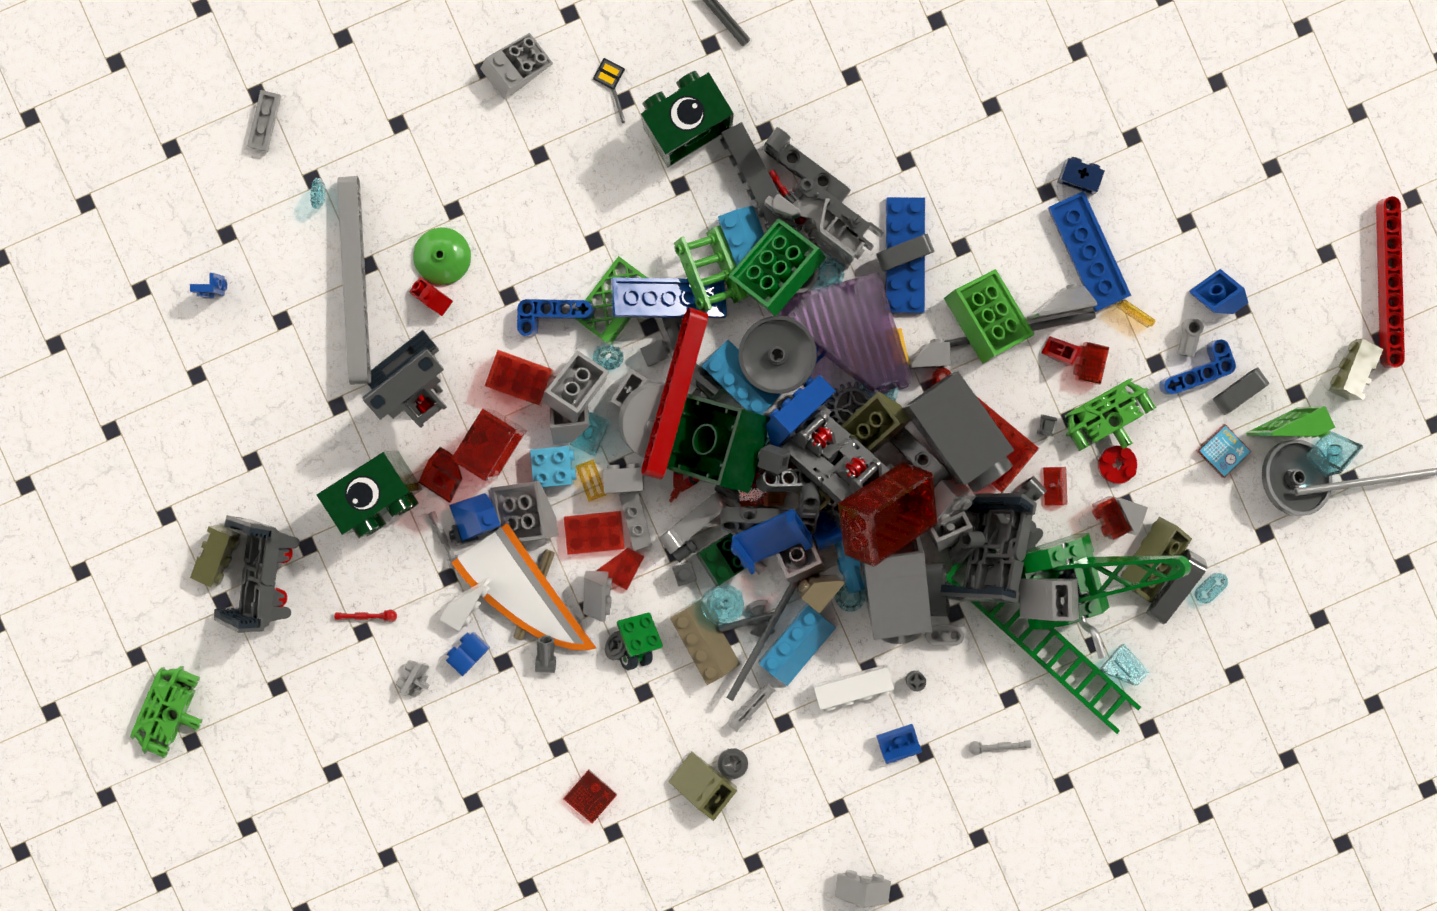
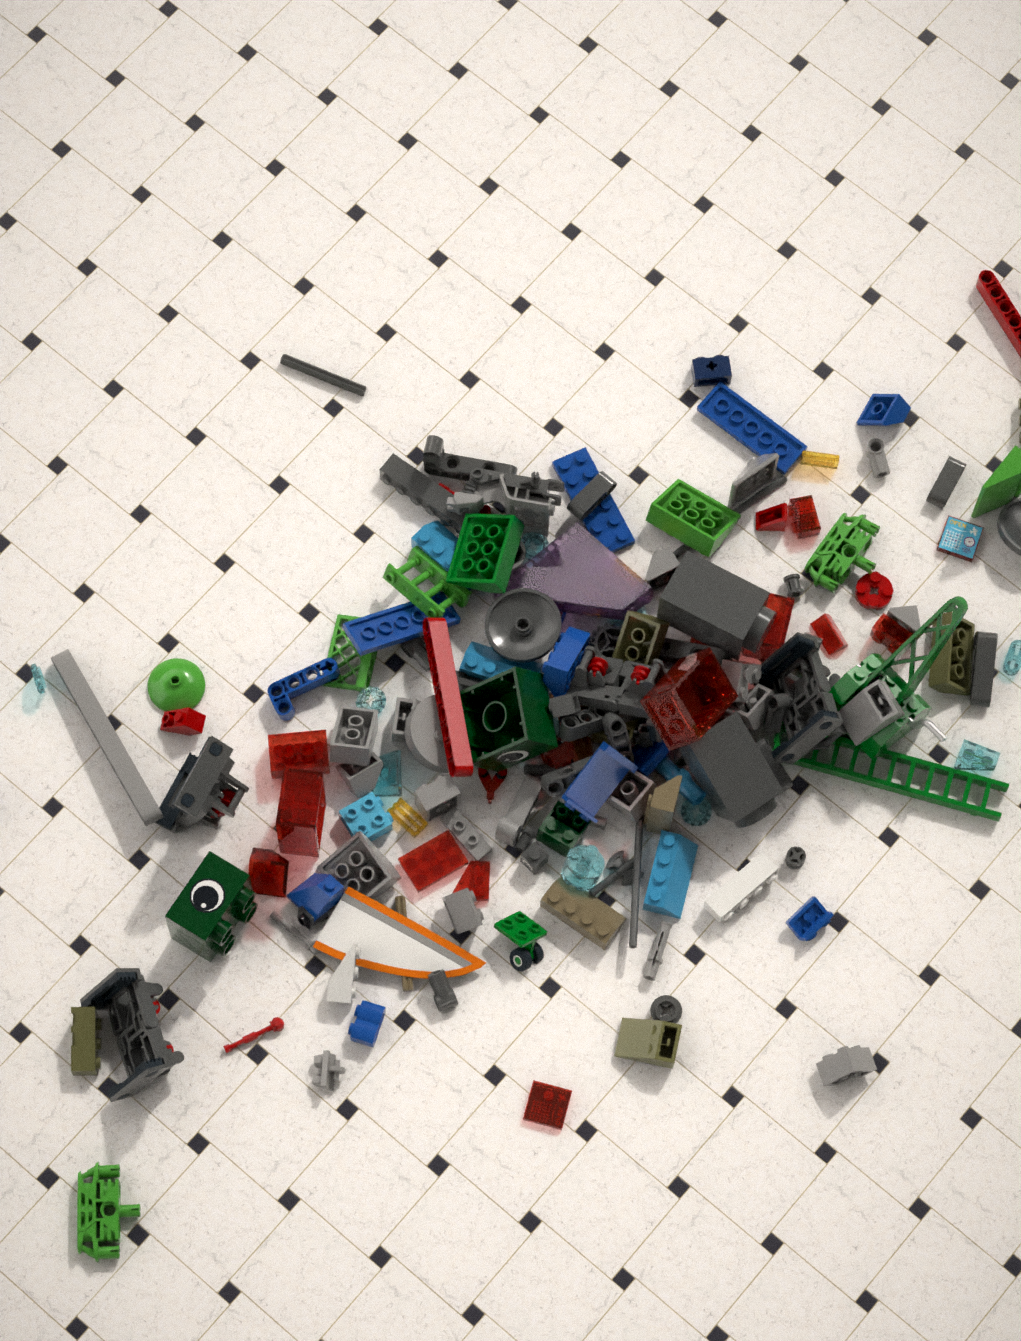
camera: 25 degrees left, 20 degrees down
(515, 65) = (168, 497): light grey slope -> none
(609, 76) = (255, 470): piece -> none
(611, 647) = (501, 958): dark grey gear -> none
(655, 352) = (411, 679): dark grey brick -> none
(686, 117) = (344, 466): dark green brick -> none
(944, 637) = (798, 805): light grey plate -> none
(977, 748) = (883, 893): light grey piece -> none
(1196, 373) = (899, 484): blue beam -> none

